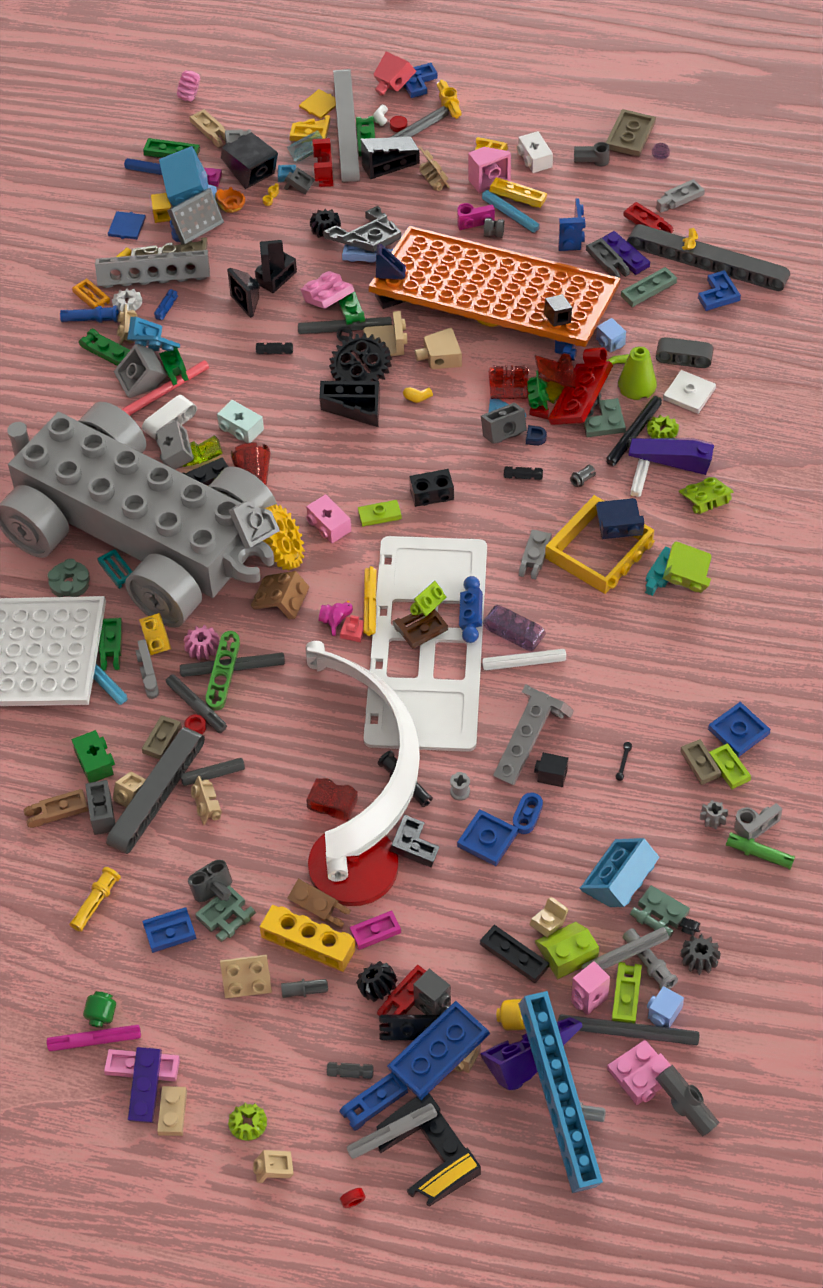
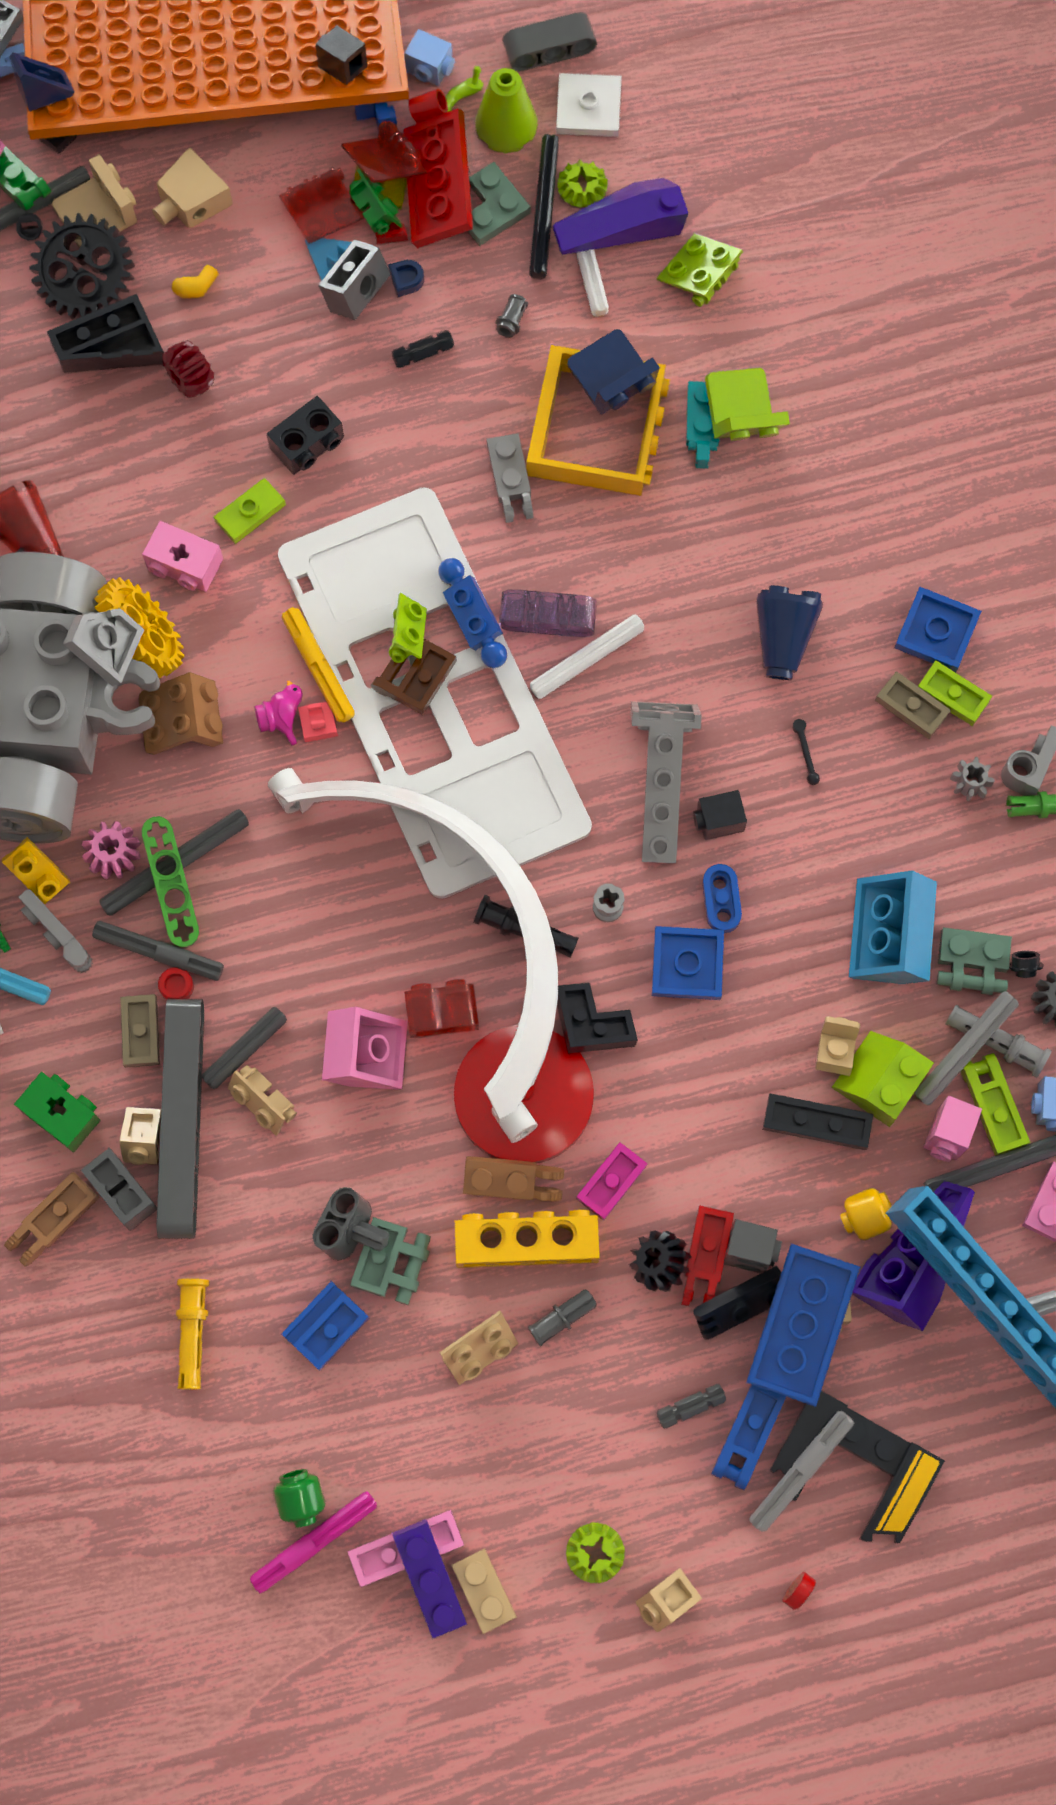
camera: 30 degrees left, 20 degrees up
(277, 799) = (364, 1049): none -> bright pink slope
(386, 430) = (188, 369): none -> dark red gear
(646, 688) = (785, 628): none -> dark blue cone

